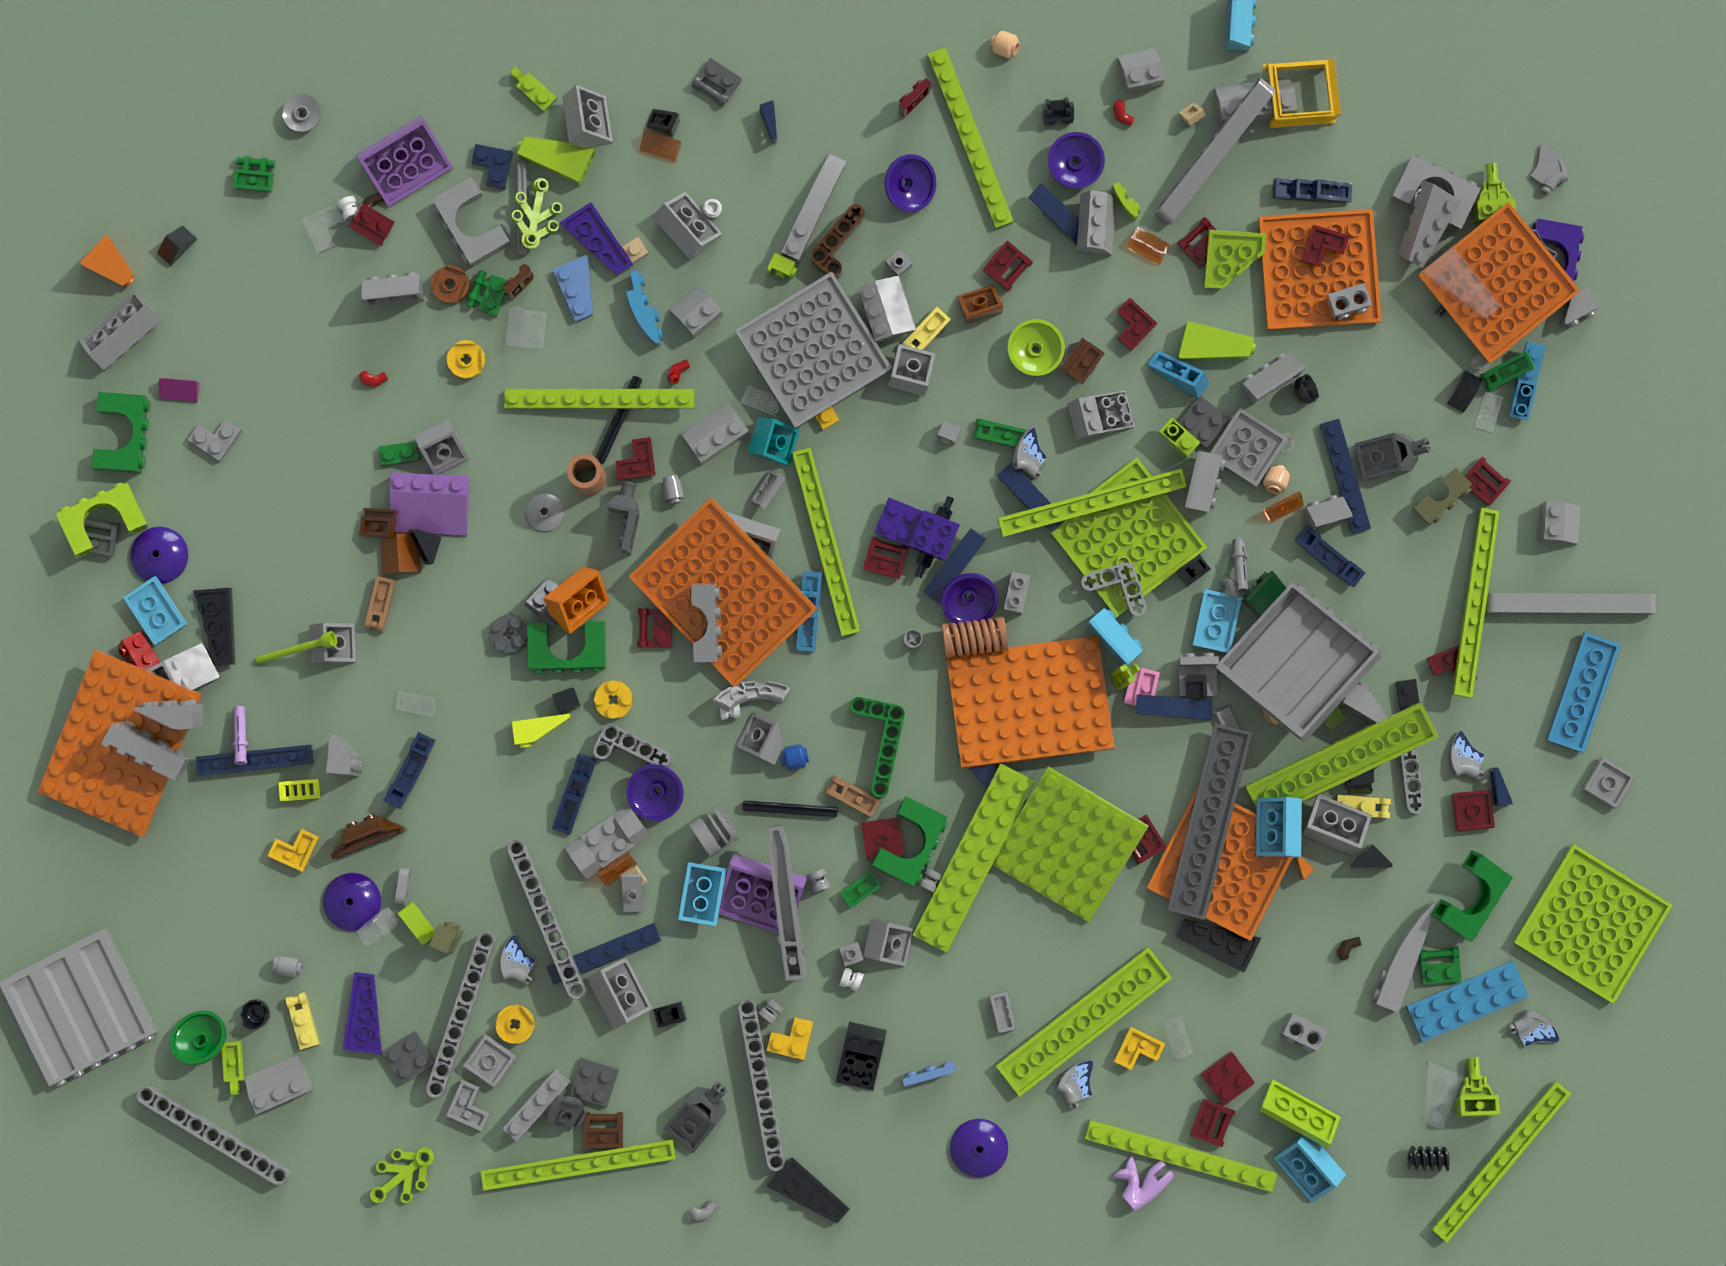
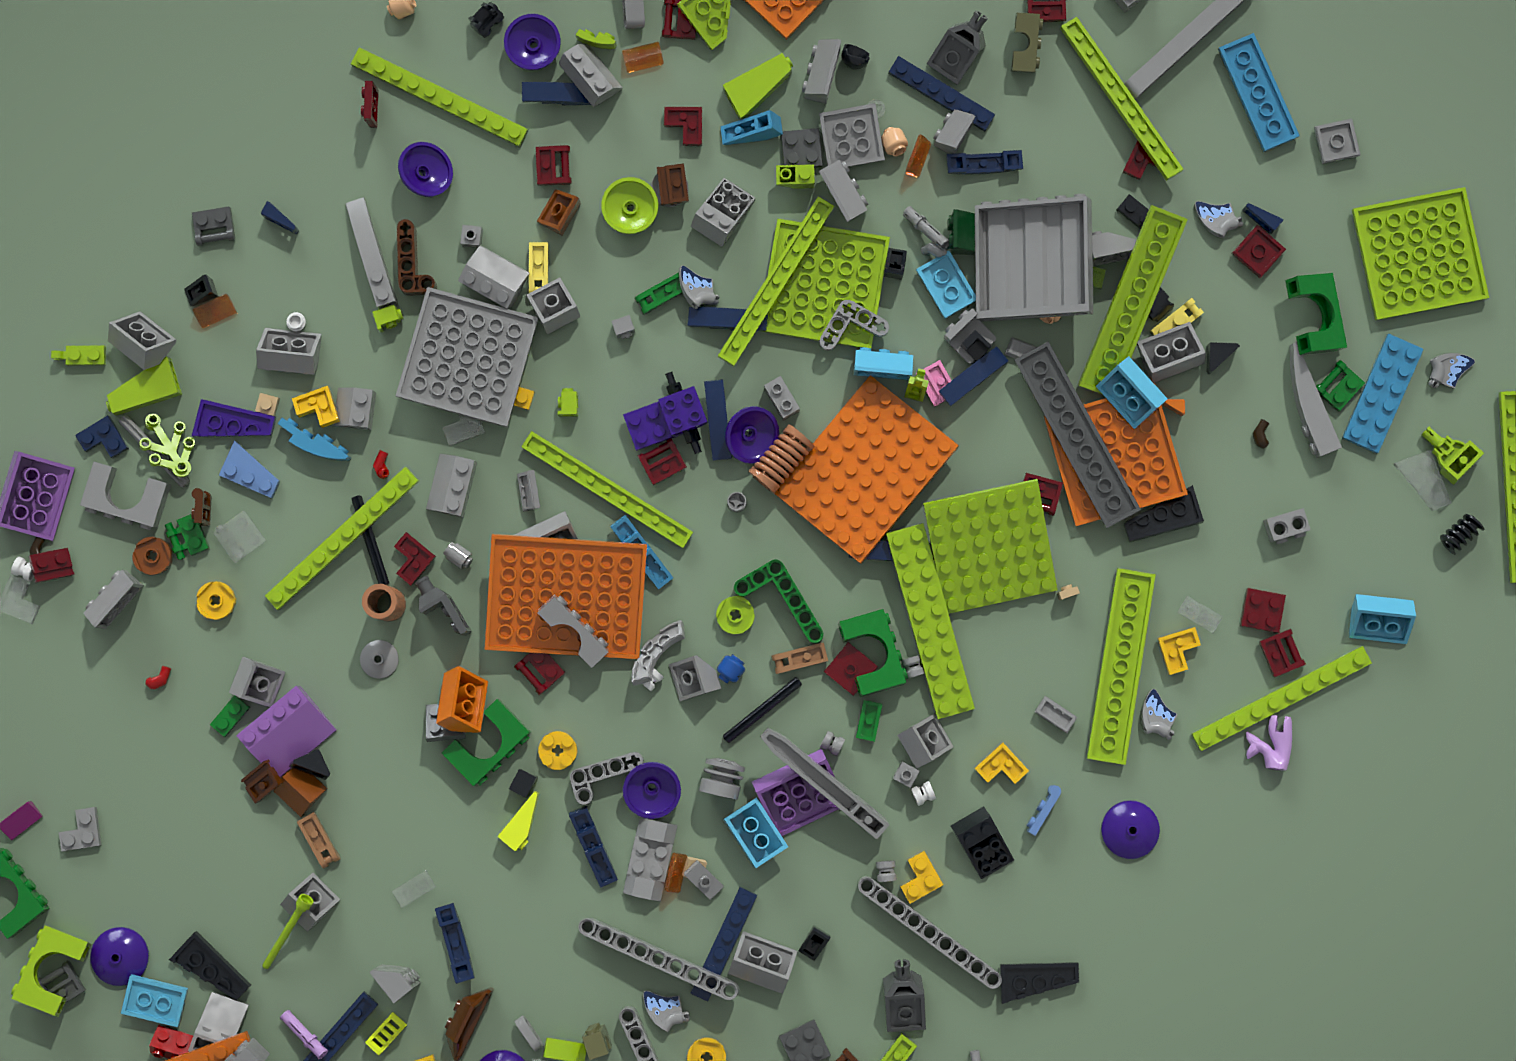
camera: 35 degrees left, 0 degrees up
(517, 640) = (439, 784): dark grey plate -> none
(674, 282) = (319, 402): none -> yellow plate
(773, 440) = (499, 451): teal slope -> none
(844, 726) = (745, 611): none -> lime plate
(856, 451) = (568, 403): none -> lime brick
(932, 1008) = (1004, 760): none -> yellow plate
(1095, 930) = (1068, 591): none -> tan plate
(1300, 1114) = (1339, 587): lime plate -> none
(1415, 776) = (1194, 265): light grey beam -> none

